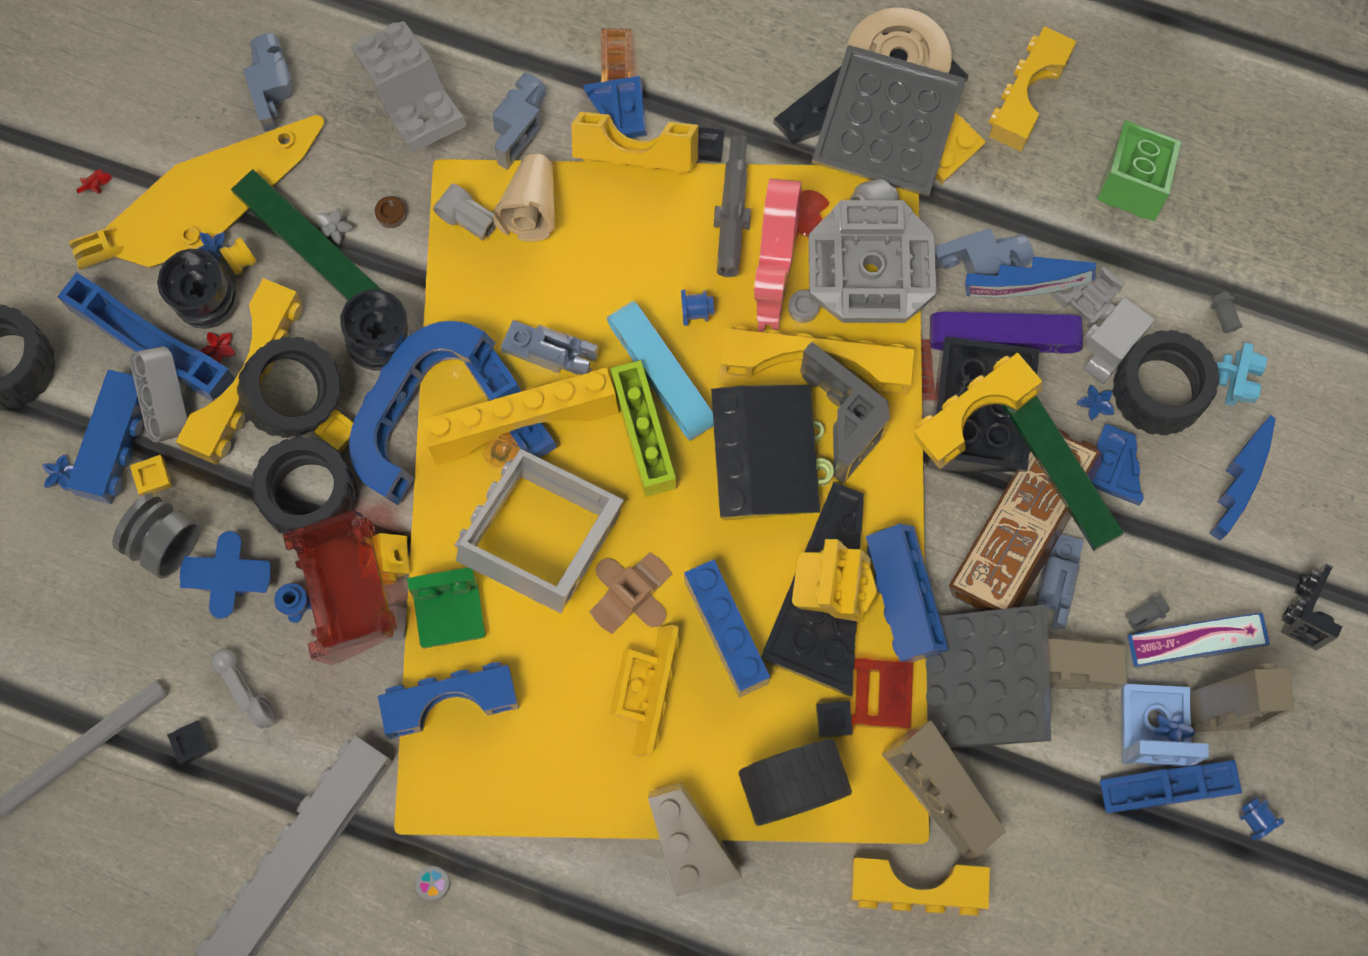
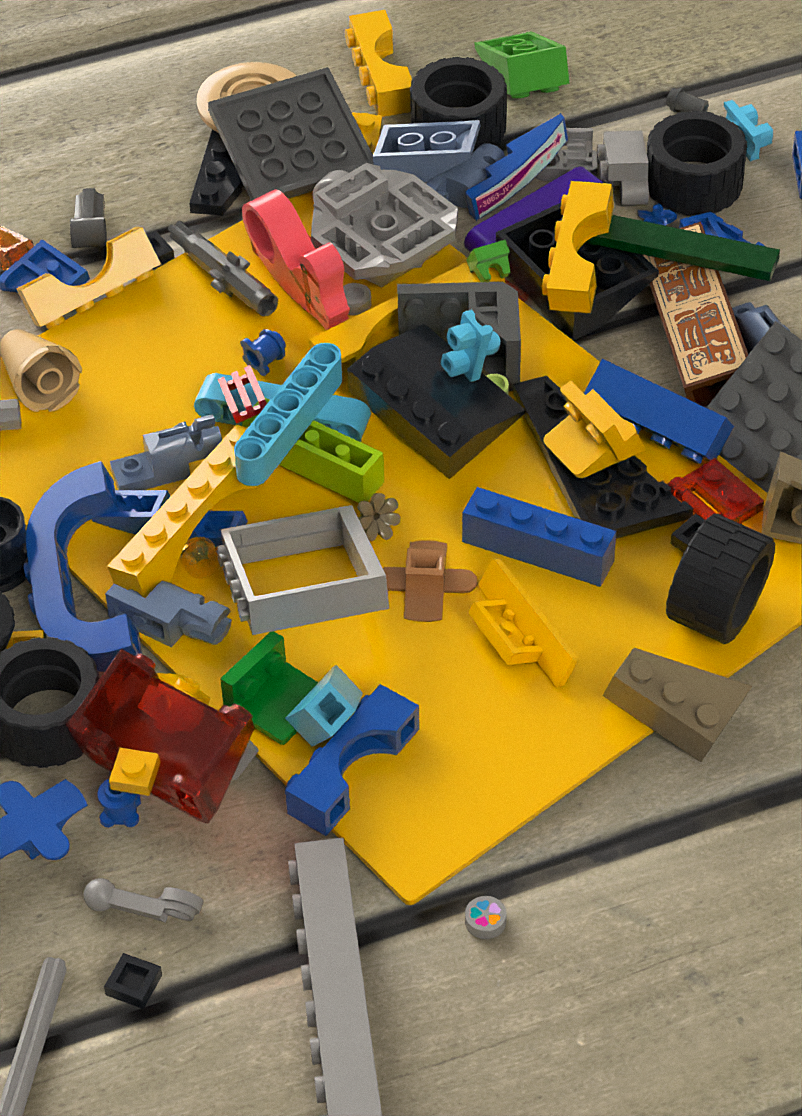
camera: 40 degrees left, 25 degrees down
(305, 598) = (134, 771): none -> yellow plate
(440, 486) = (170, 613): none -> sand blue plate
(463, 651) = (325, 707): none -> medium azure slope
(634, 331) = (239, 382): none -> tile
(640, 517) = (378, 515): none -> dark tan plant
(646, 385) = (288, 414): none -> medium azure beam
(685, 86) = (89, 223): none -> dark grey piece
(809, 443) = (470, 346): none -> medium azure hips
(906, 362) = (489, 256): none -> bright green tile
(969, 212) = (425, 147): none -> sand blue slope
(1051, 152) = (461, 84): none -> black tyre

